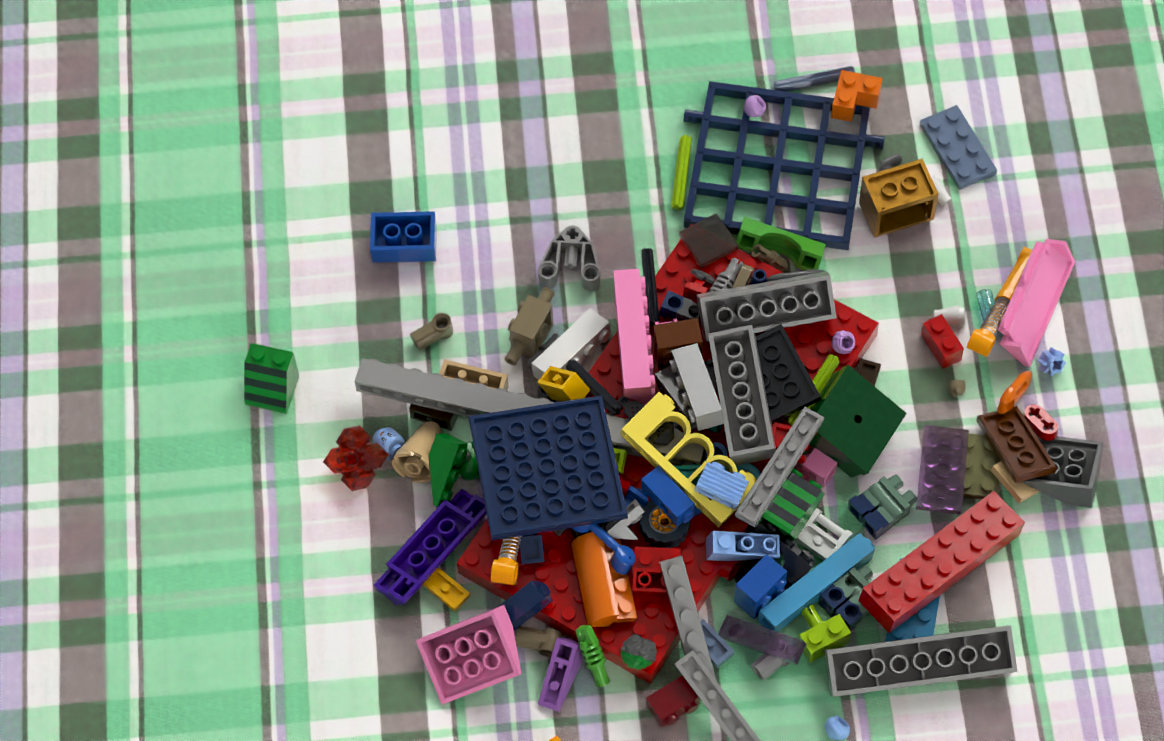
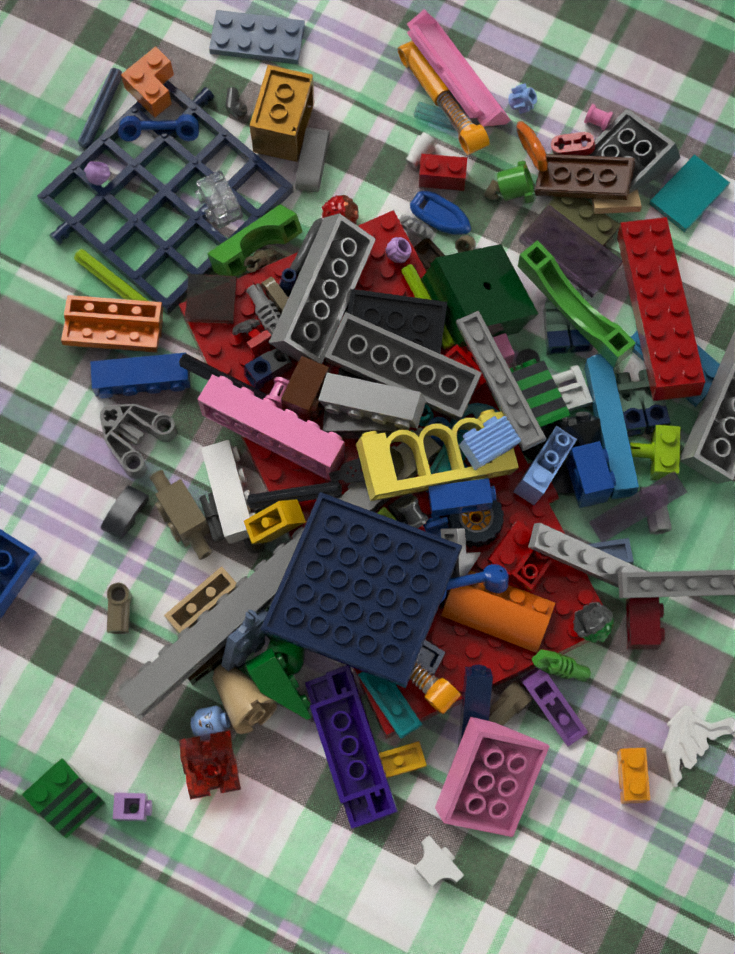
camera: 60 degrees left, 10 degrees up
(292, 423) = (122, 806): none -> lavender brick
(385, 659) = (437, 864): none -> white brick
(455, 420) = (244, 640): none -> sand blue plate
(479, 553) = (391, 704): none -> teal tile
(506, 289) = (123, 512): none -> black slope
(617, 233) = (139, 374): none -> blue brick
(635, 470) = (408, 511): none -> dark grey piece
(646, 193) = (112, 323): none -> orange brick
(719, 435) = (424, 421): none -> teal pin
(794, 199) = (219, 199): none -> clear brick
(833, 497) = (526, 355): none -> black piece
(838, 141) = (186, 127): none -> blue piece
(851, 289) = (341, 205): none -> piece
(879, 349) = (416, 227): none -> light grey gear
(882, 245) = (312, 159): none -> light grey beam
(893, 493) = (602, 333): none -> bright green arch
(895, 394) = (463, 241): none -> dark tan hinge
(907, 361) = (440, 213): none -> blue piece
(973, 399) = (516, 183): none -> bright green piece
(1068, 534) = (689, 193): none -> teal tile
(1080, 426) = (598, 117): none -> bright pink bush

